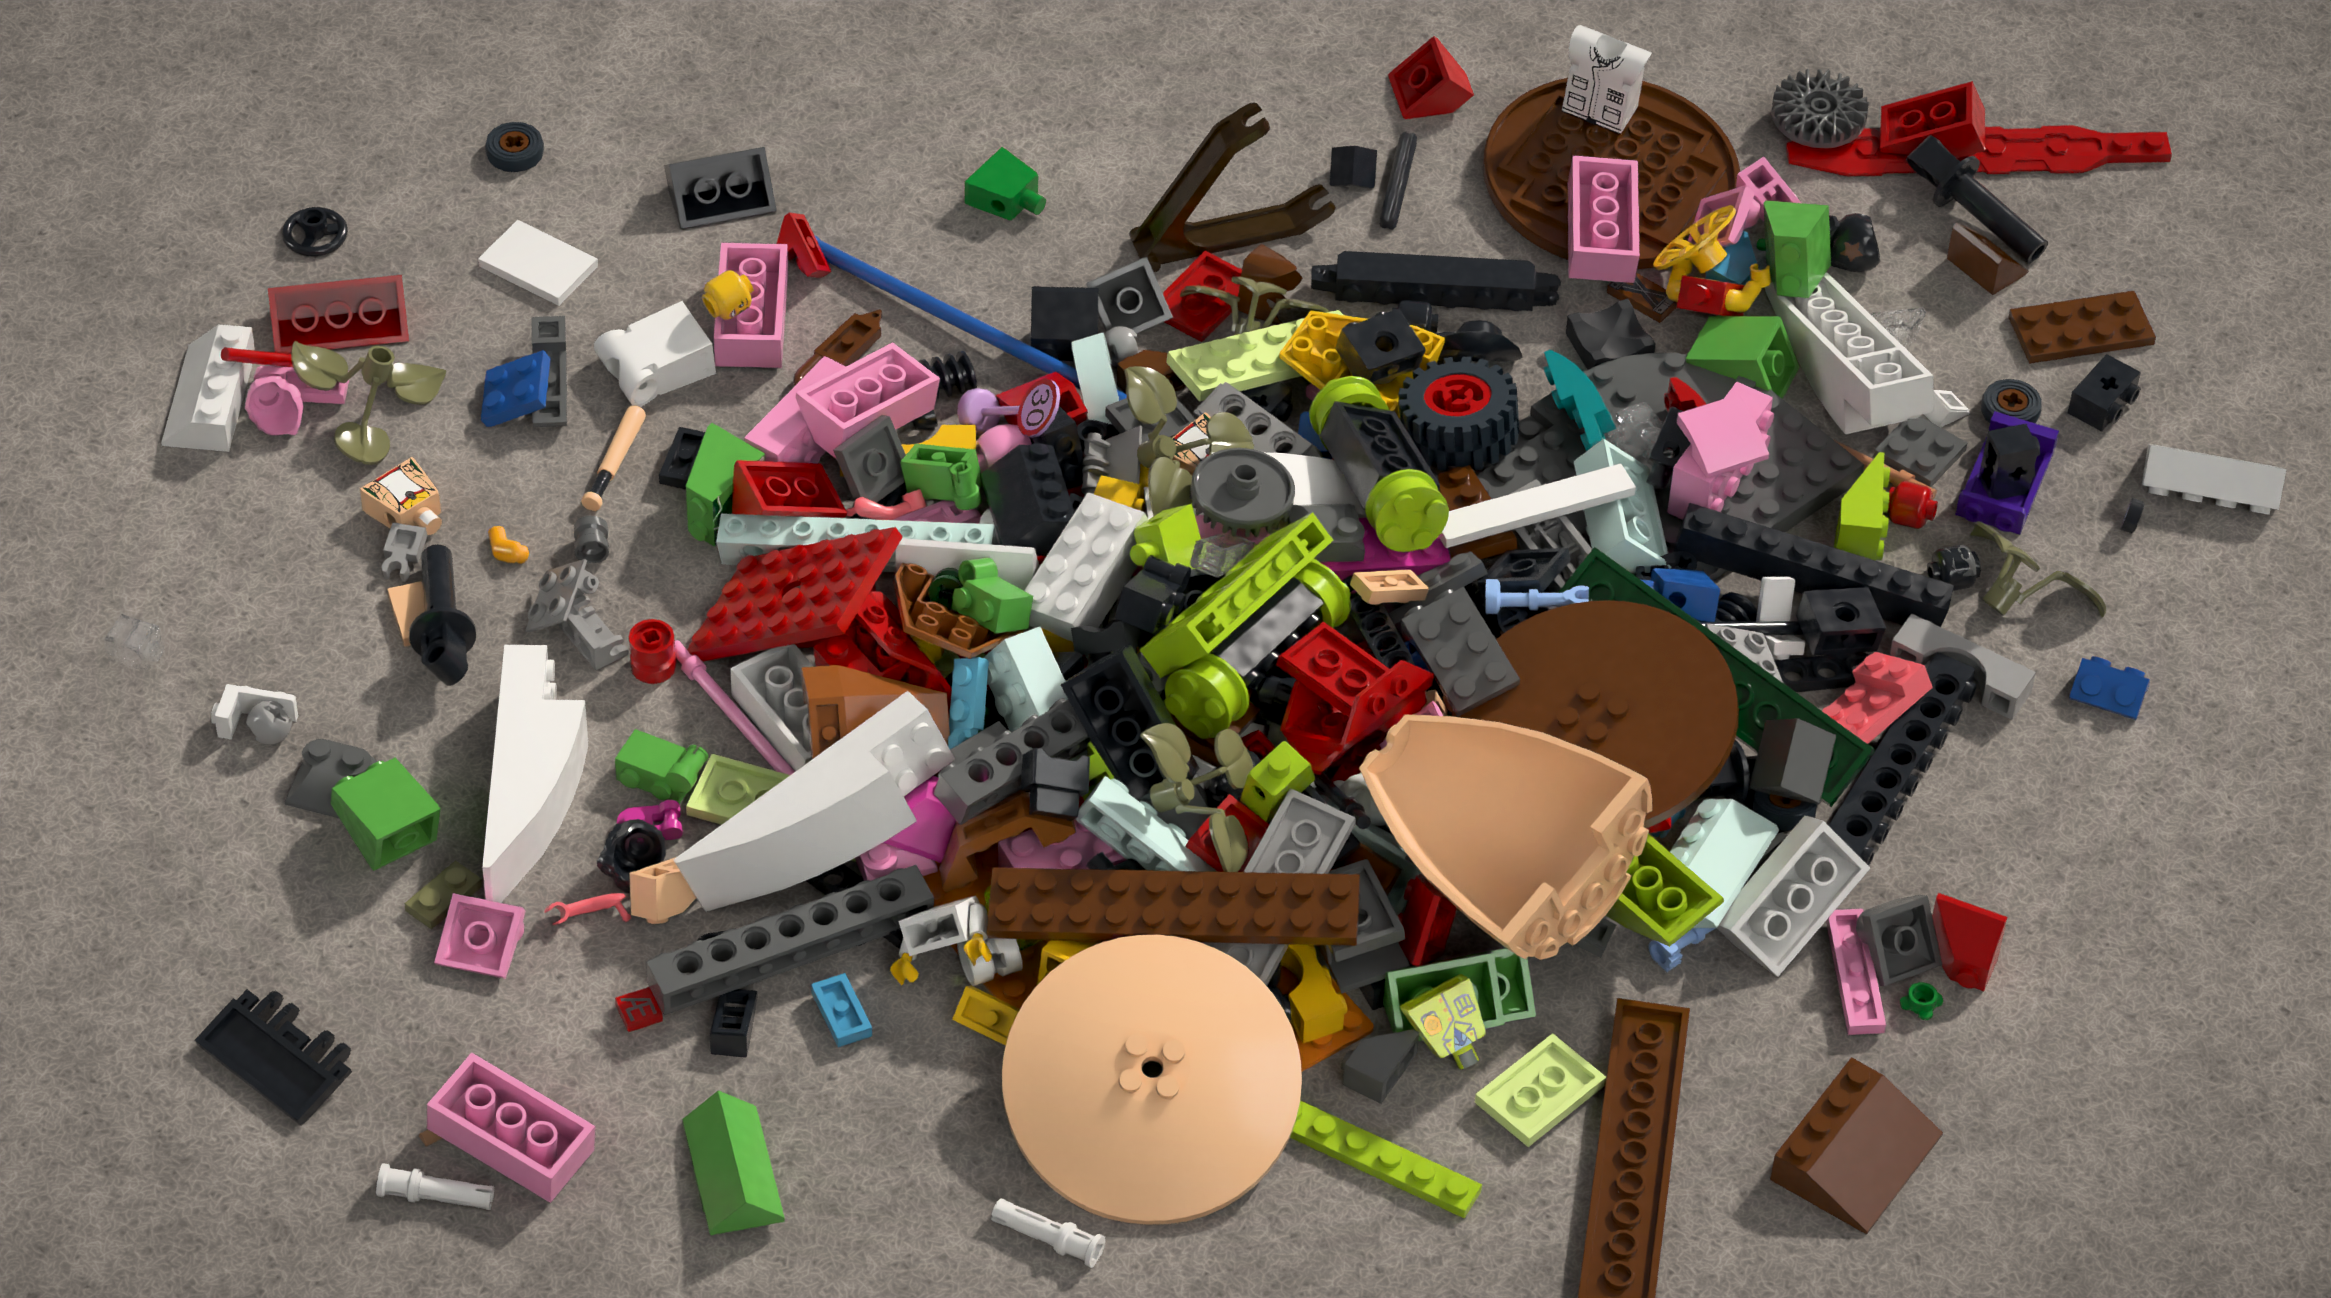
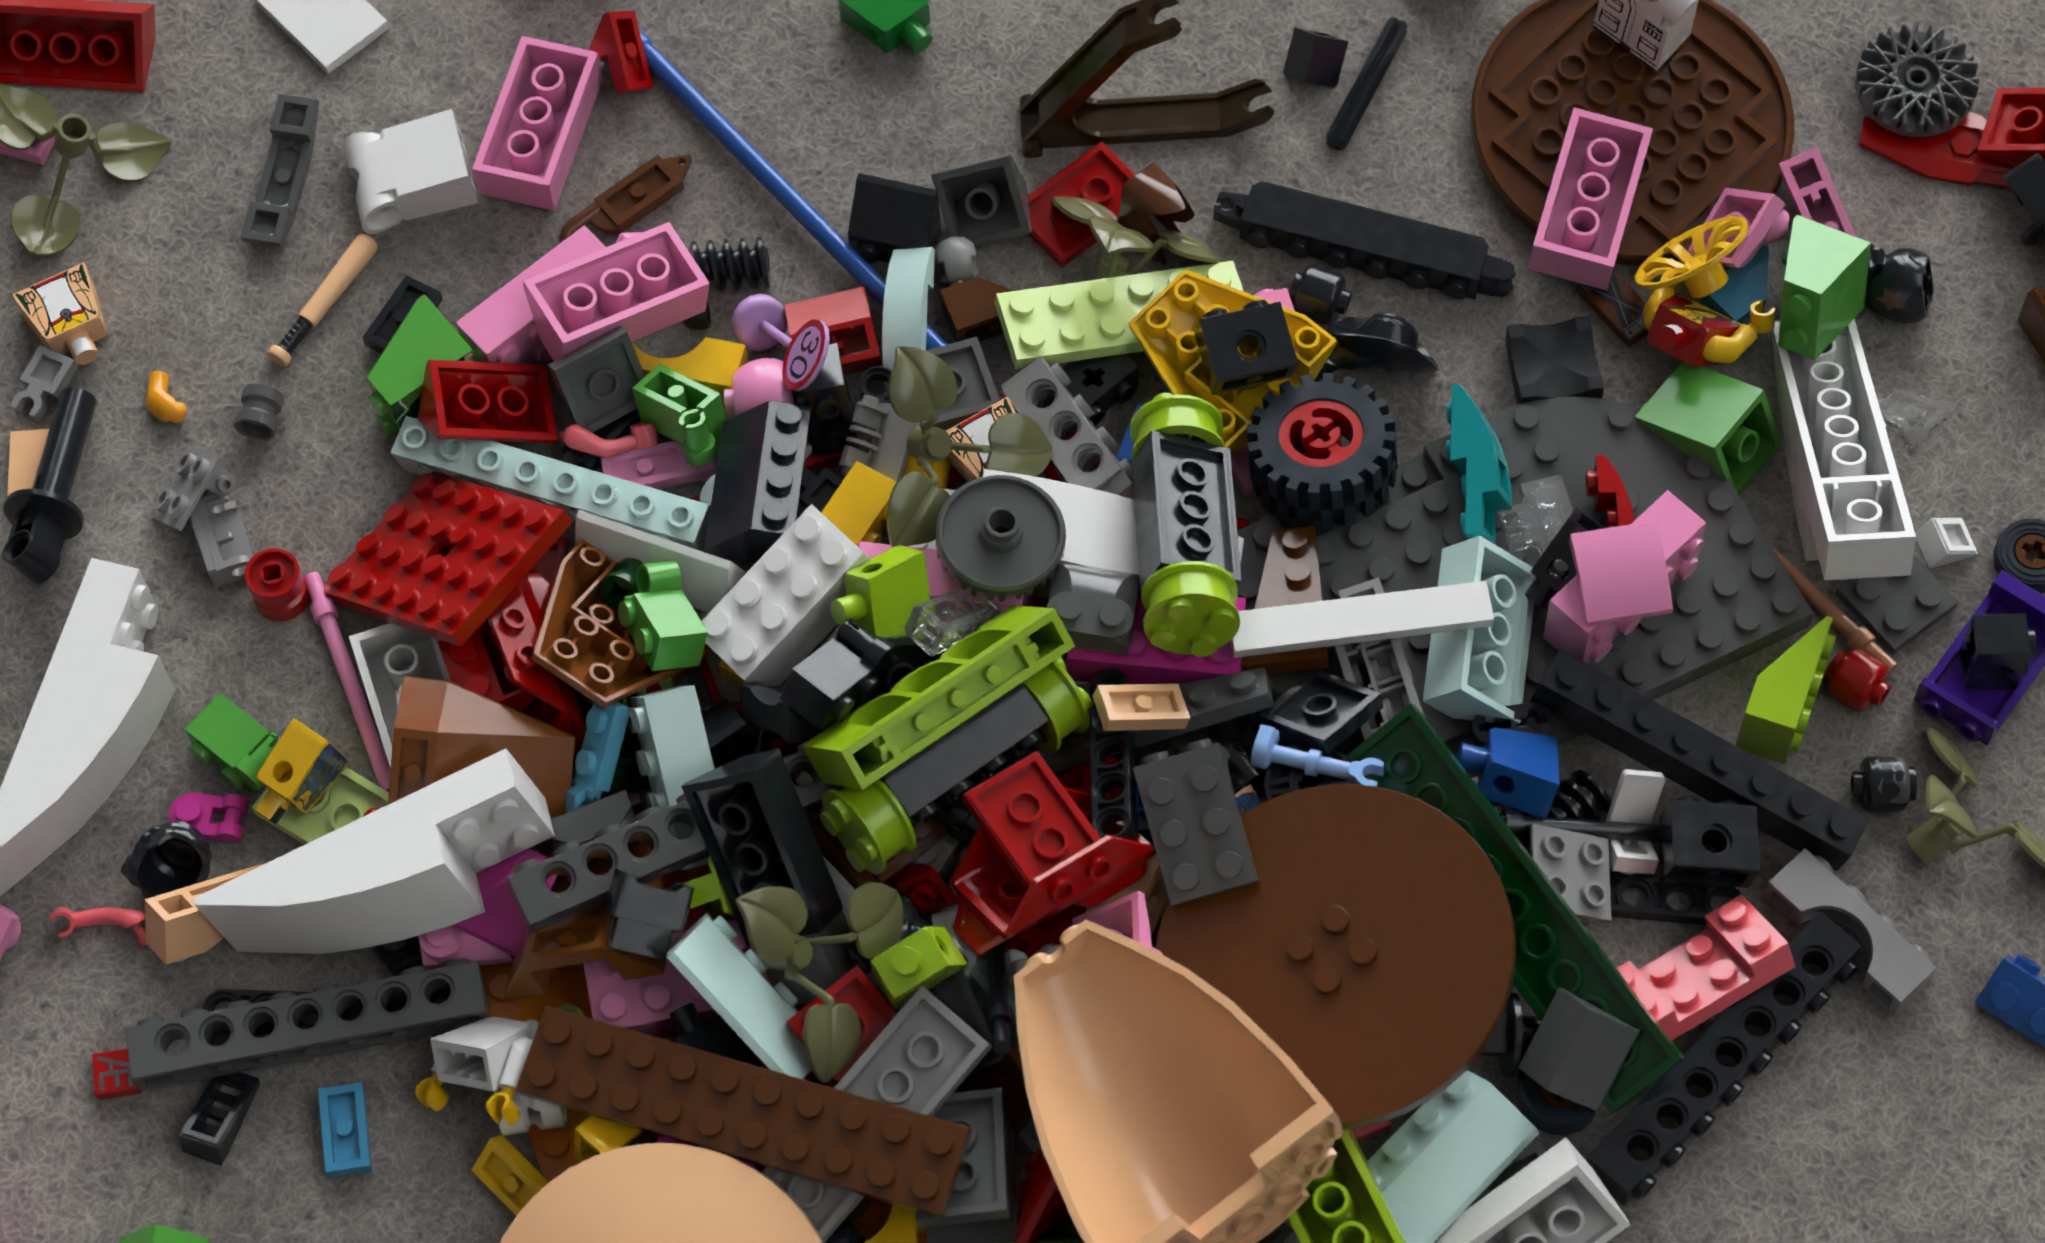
camera: 20 degrees right, 15 degrees up
(515, 389) = (235, 187): blue plate -> none
(724, 763) = (298, 771): none -> yellow torso
(727, 295) = (498, 117): yellow head -> none

